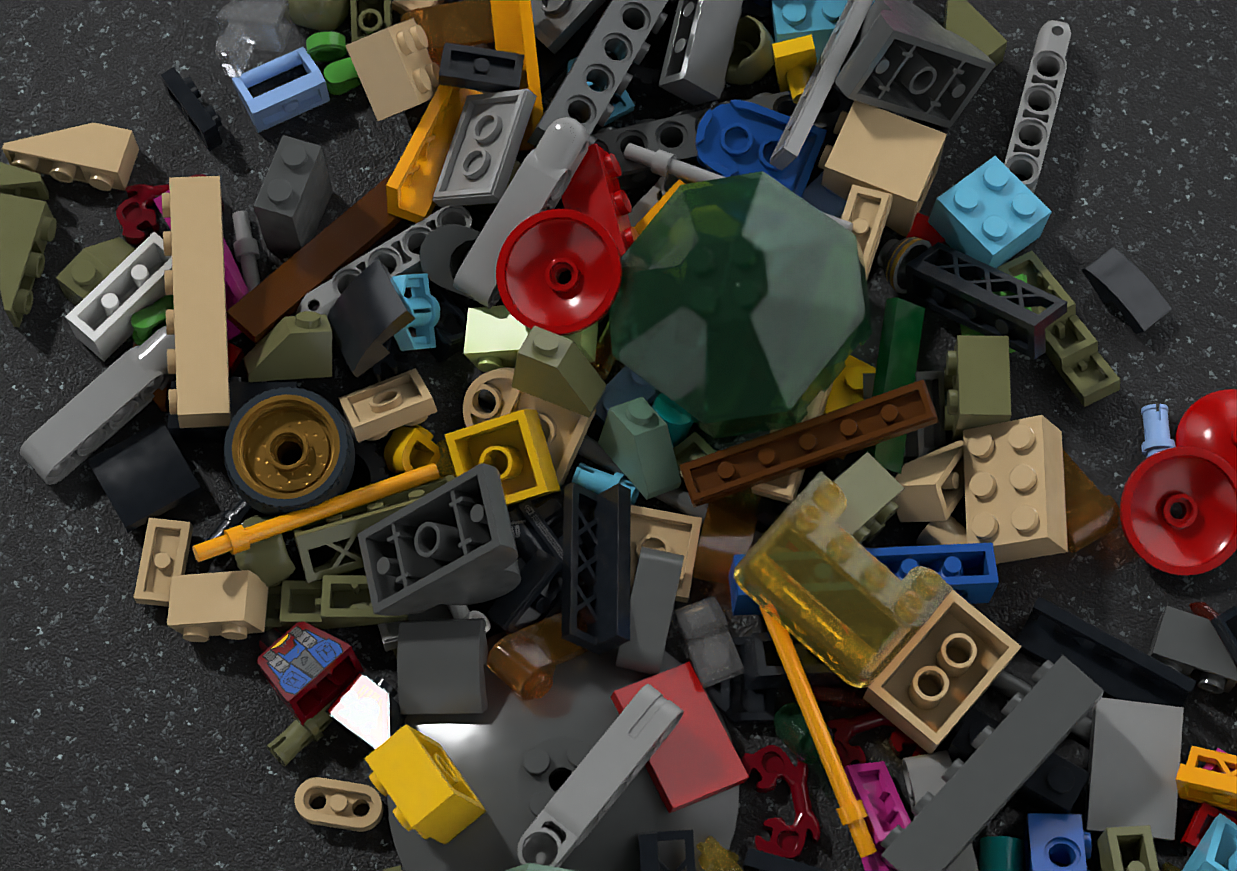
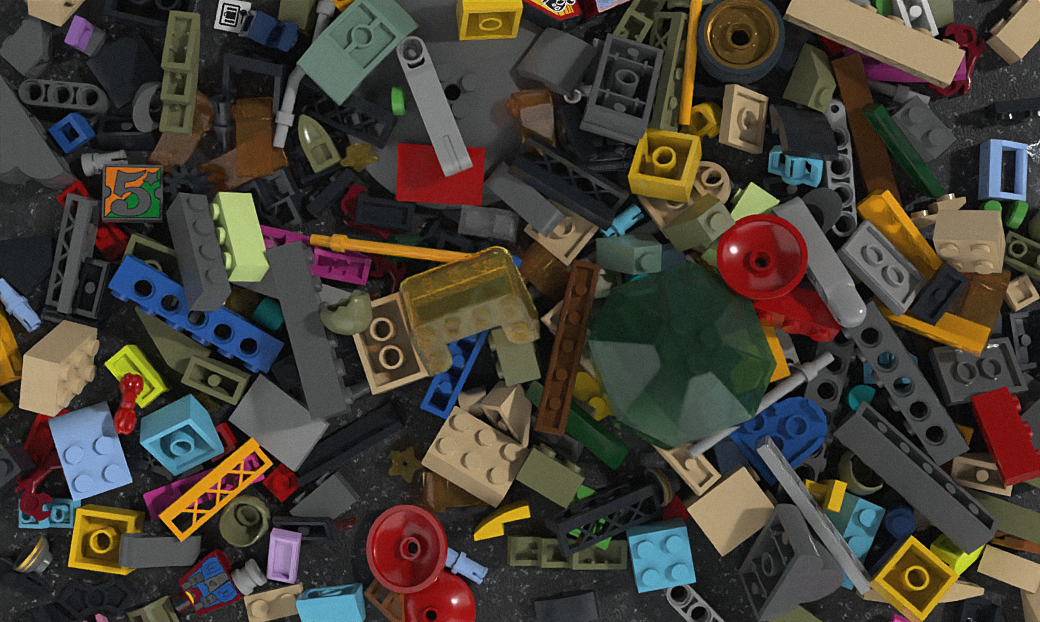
camera: 120 degrees right, 20 degrees up
(323, 202) = (902, 150): none -> dark green tile
(362, 126) = (945, 202): none -> tan slope
(614, 837) = (399, 100): none -> bright green tile
(654, 101) = (856, 394): none -> teal brick
(774, 787) = (385, 213): none -> black tile
(937, 726) = (349, 315): none -> olive hair
(1080, 593) = (408, 456): none -> clear yellow plate
(1083, 423) = (494, 525): none -> yellow slope
(1206, 723) = (282, 482): none -> red plate

